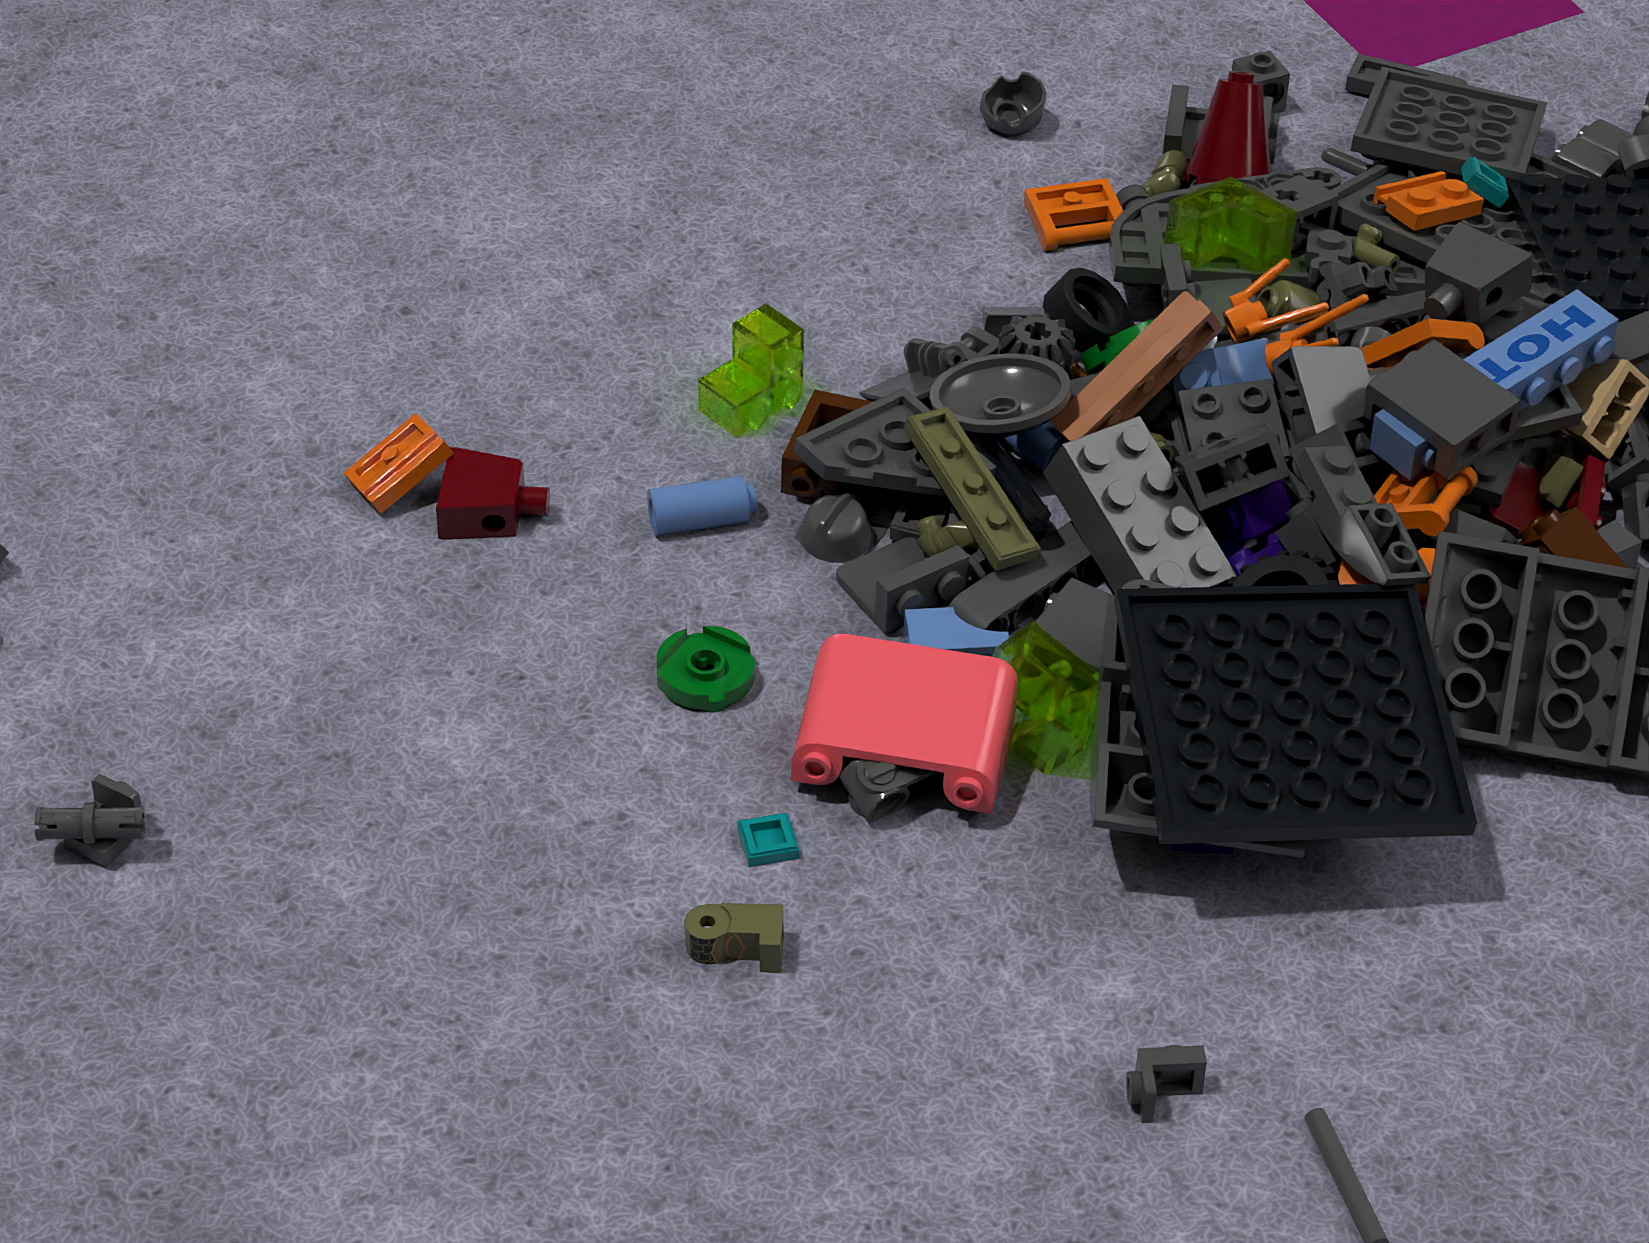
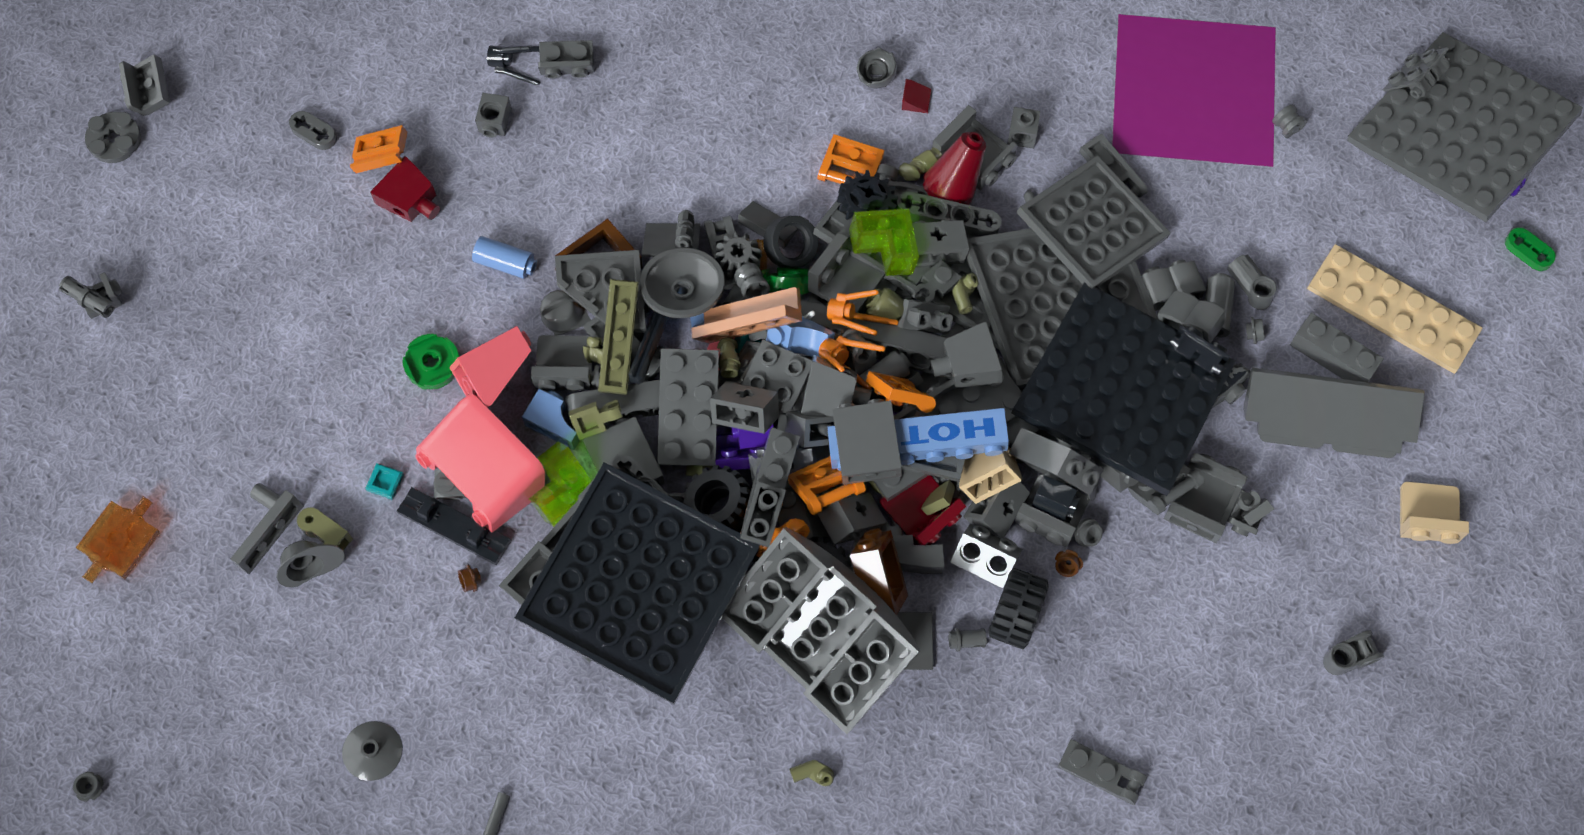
camera: 35 degrees right, 25 degrees up
(266, 495) = (309, 135): none -> dark grey beam
(412, 1110) = (117, 540): none -> clear orange plate
(480, 298) = (501, 56): none -> black plant
(530, 361) = (489, 106): none -> dark grey brick
(575, 265) = (566, 58): none -> dark grey bracket
(650, 943) = (280, 514): none -> dark grey piece
(754, 974) = (307, 560): none -> dark grey piece
(759, 377) = (587, 192): clear neon green brick -> none
(819, 599) = (491, 365): none -> coral slope
(923, 838) = (453, 526): none -> black hinge
(1012, 881) = (469, 578): none -> reddish brown plate
(1018, 597) = (591, 420): none -> olive plate
(1063, 1186) = (380, 762): none -> dark grey dish
(1085, 119) = (916, 97): none -> dark red slope
(1086, 356) = (751, 281): none -> dark grey wheel
(1143, 204) = (866, 194): none -> black gear
(1165, 1072) = (454, 731): dark grey bracket -> none
(1428, 200) = (1022, 276): orange plate -> none
(1485, 181) = (1066, 280): teal tile -> none

